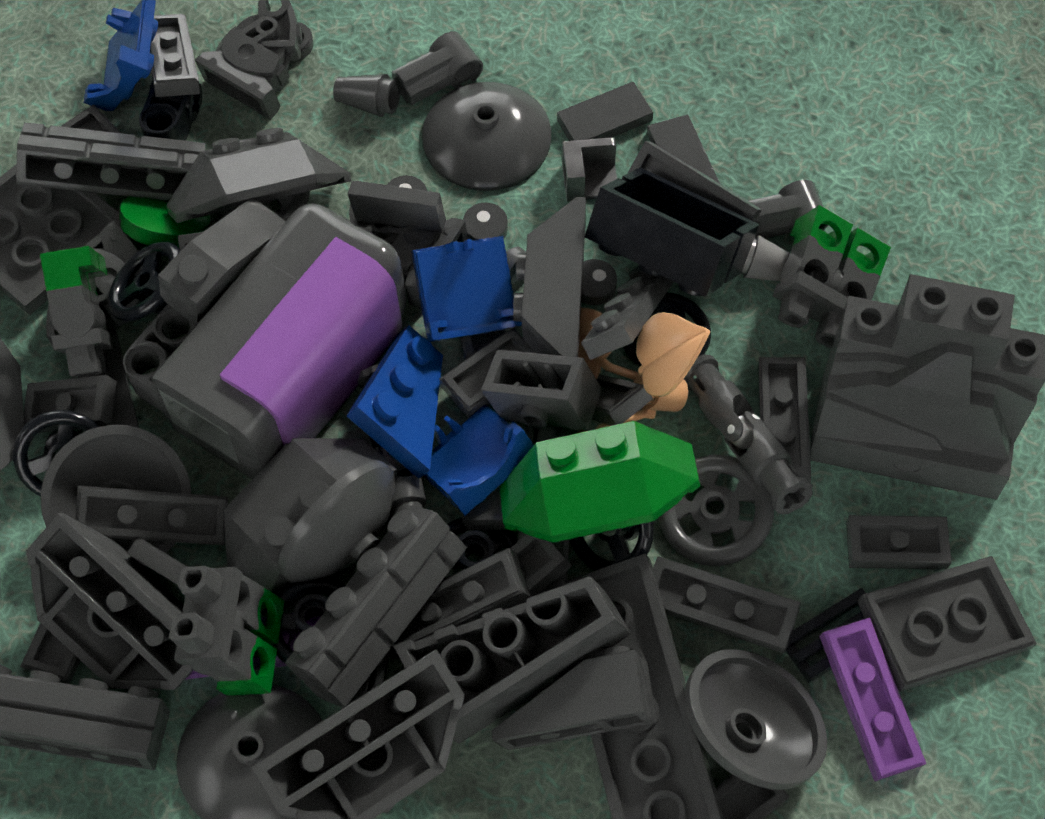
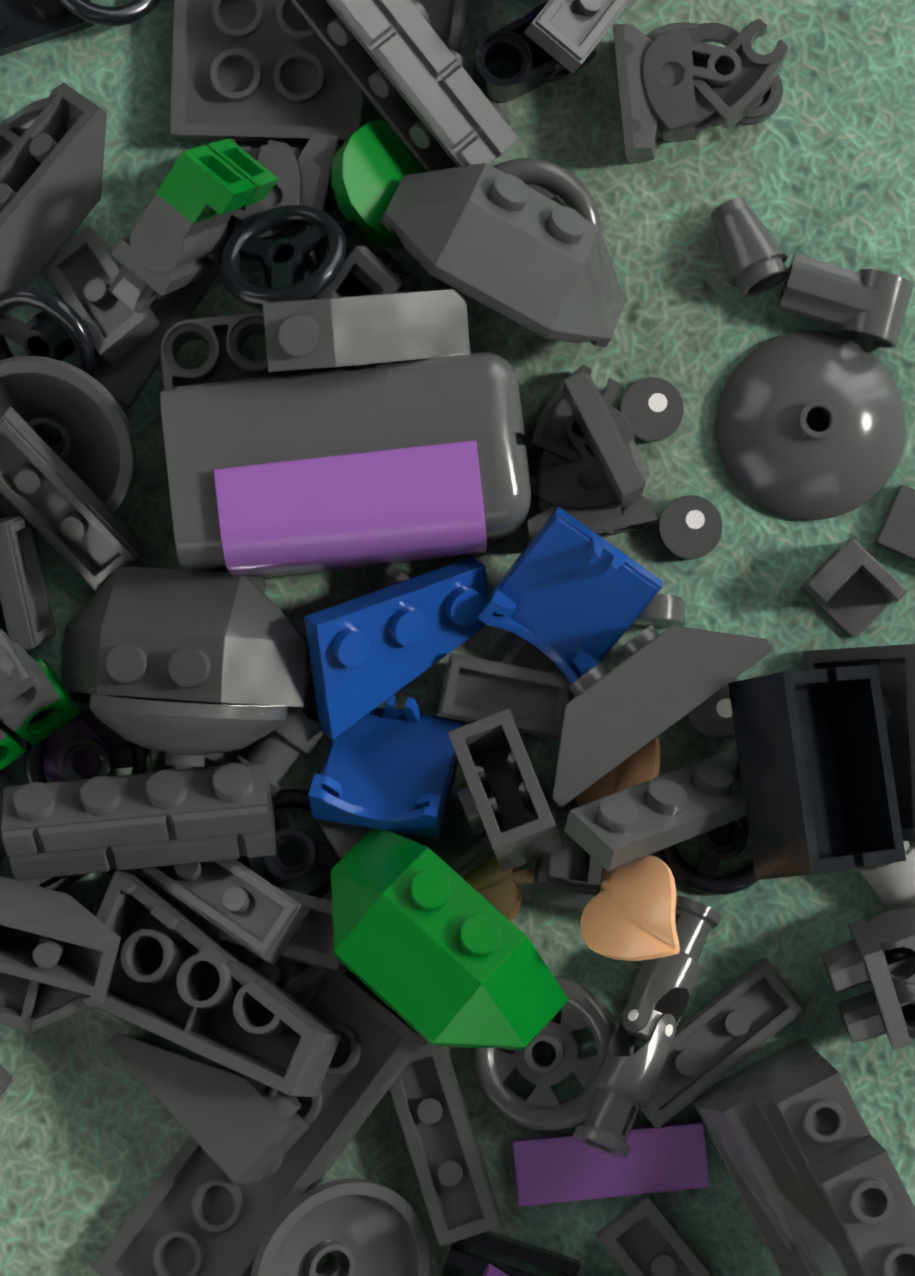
camera: 45 degrees right, 25 degrees up
(811, 529) = (567, 1170): none -> medium lavender tile

